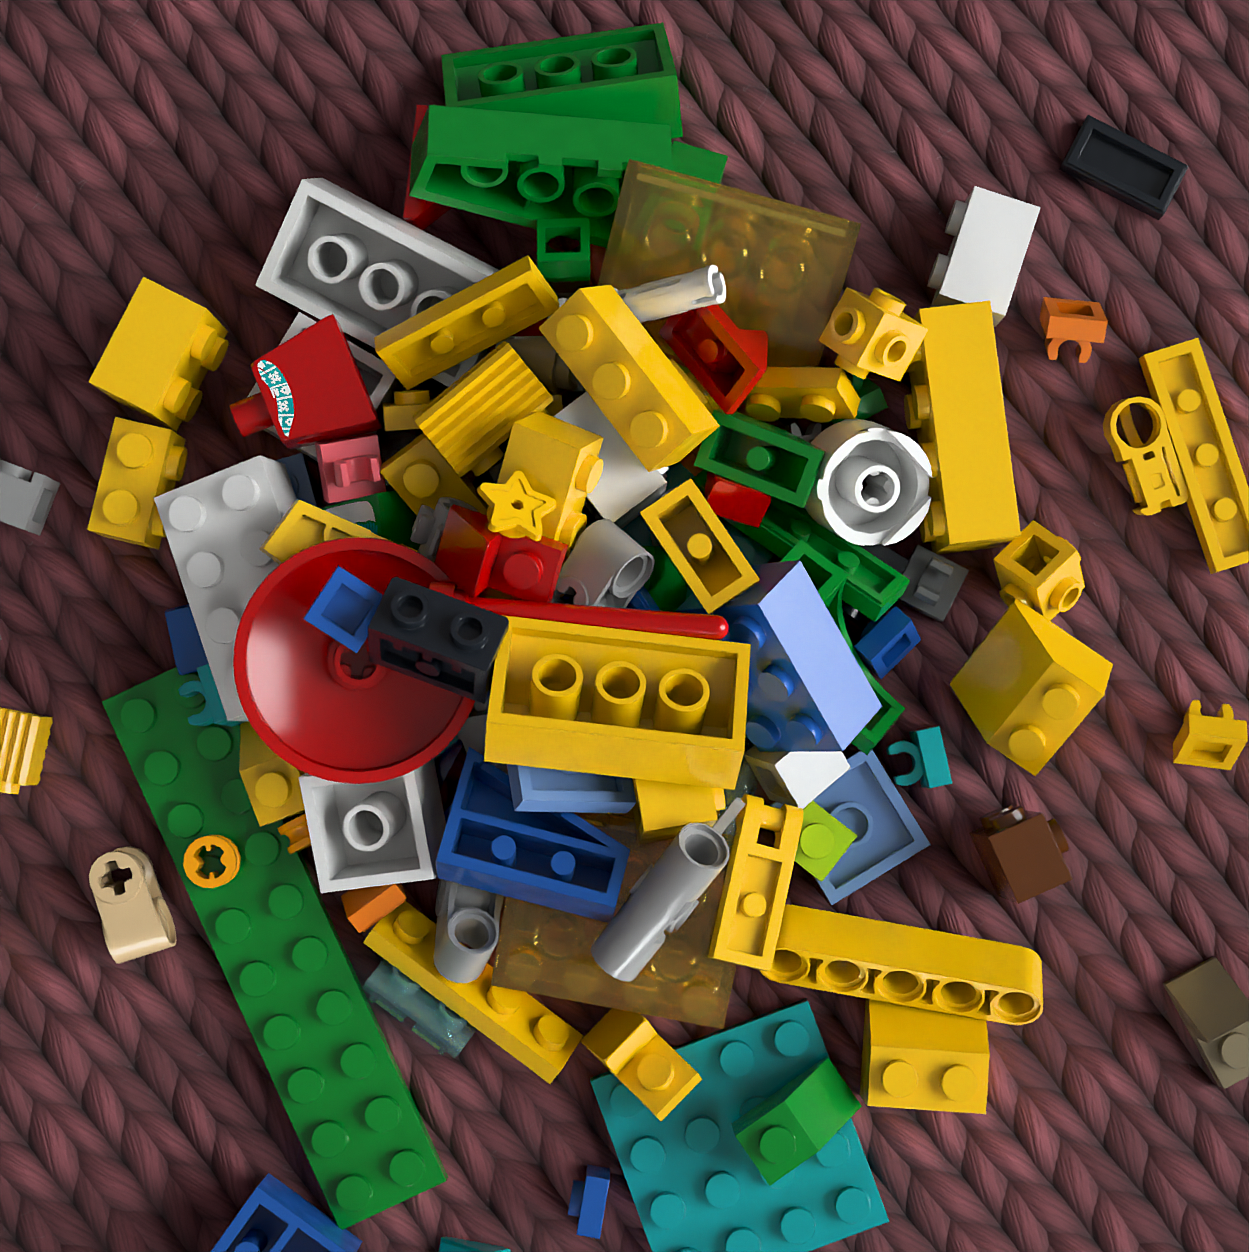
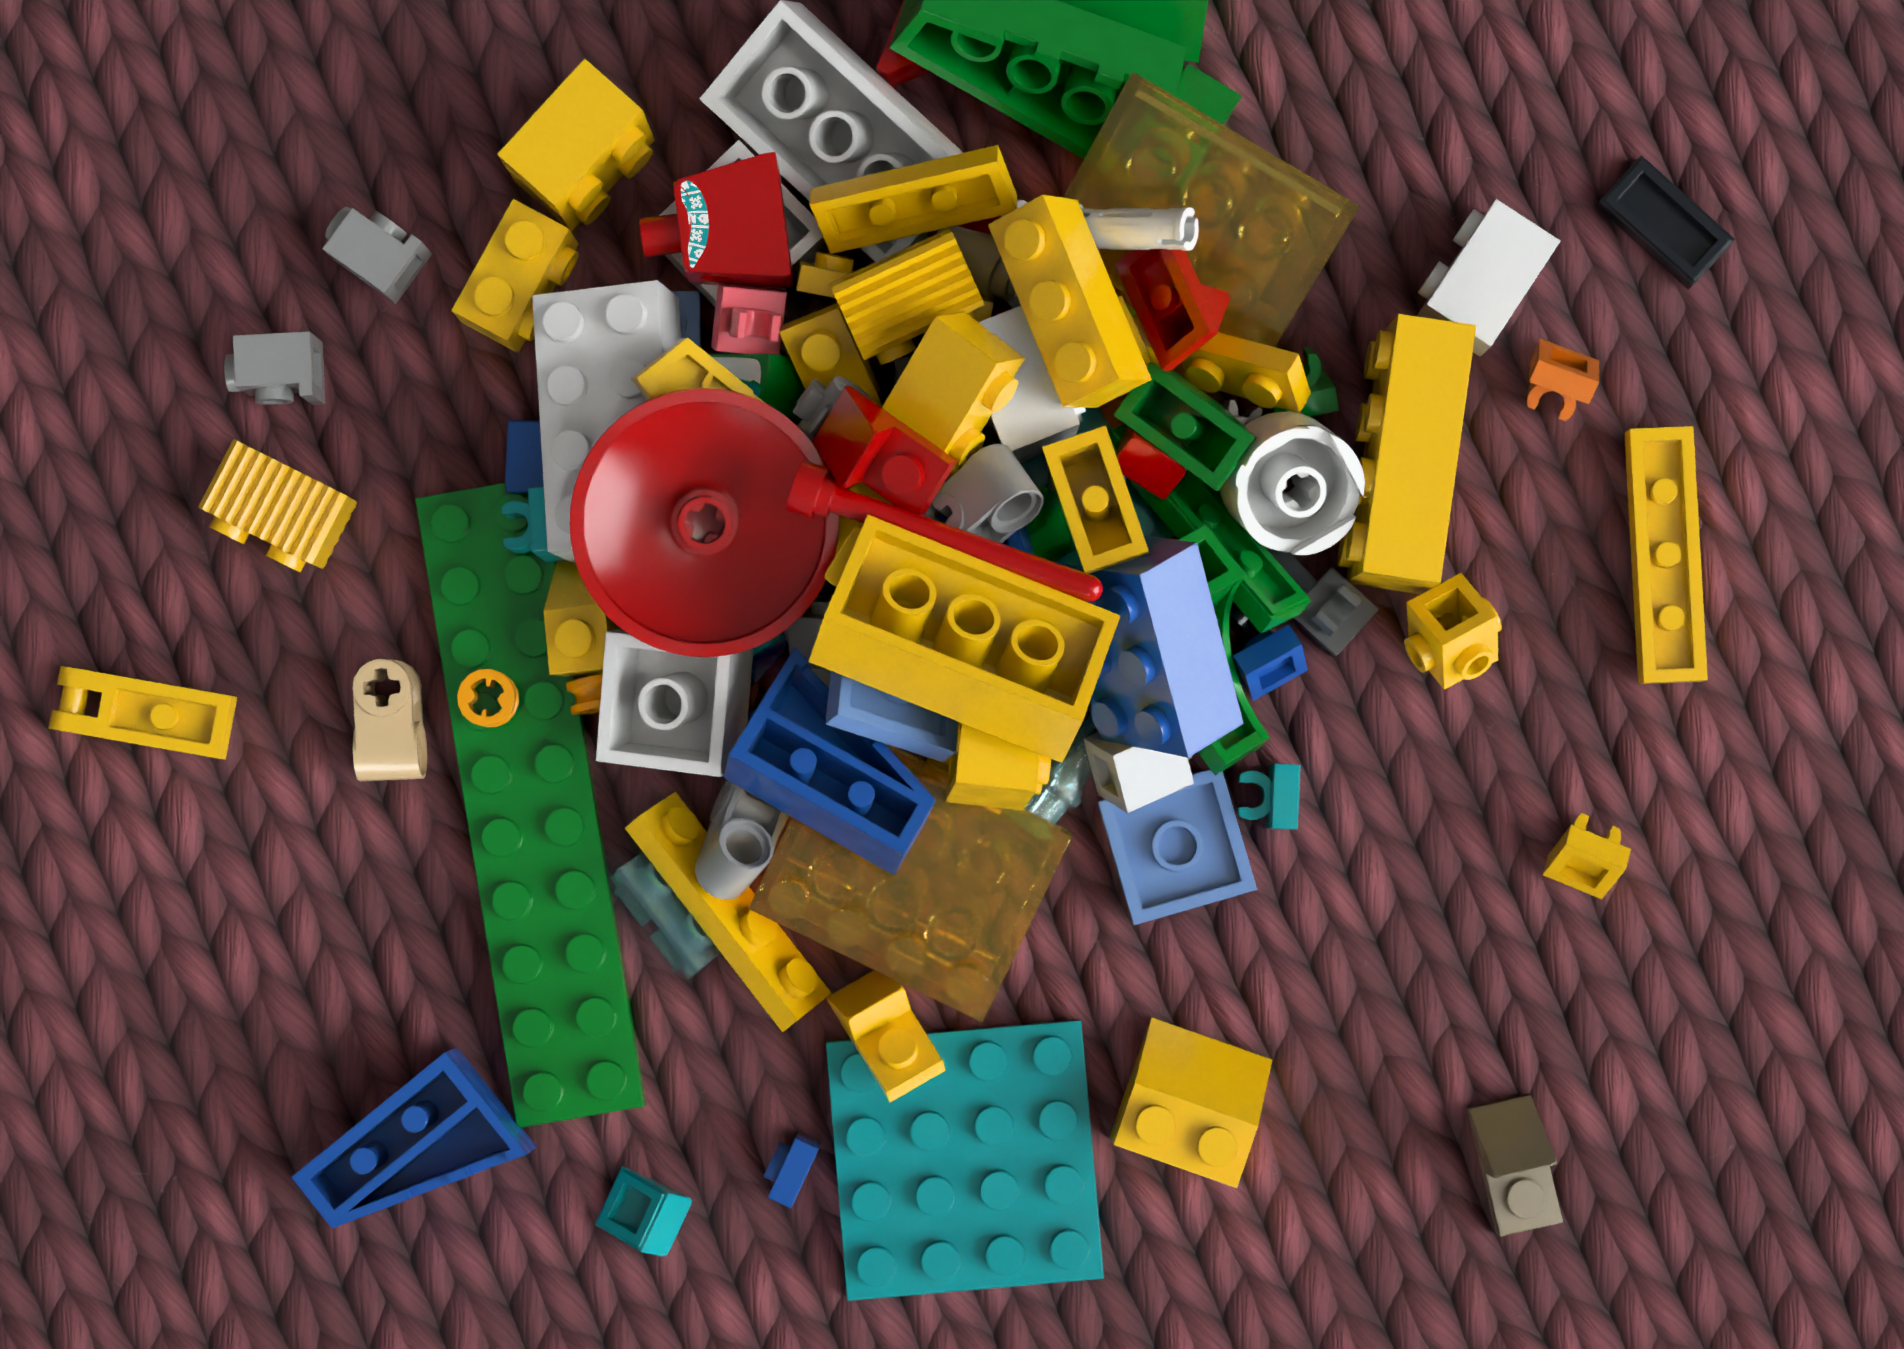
camera: 15 degrees right, 0 degrees up
(344, 608) = (708, 464): blue plate -> none
(371, 904) = (646, 788): orange tile -> none
(436, 639) = (793, 521): black bracket -> none
(511, 521) = (907, 420): yellow plate -> none
(567, 269) = (1035, 171): green leg -> none
(664, 897) = (957, 858): light grey pin -> none
(756, 885) = (1058, 877): yellow plate -> none
(796, 1120) = (1034, 1139): green slope -> none
(821, 841) = (1135, 850): lime plate -> none
(872, 334) = (1341, 327): yellow brick -> none
(908, 966) = (1190, 1008): yellow beam -> none
(1021, 852) = (1351, 921): reddish brown brick -> none
(1030, 686) = (1408, 748): yellow slope -> none
(1151, 466) = (1604, 552): yellow piece -> none

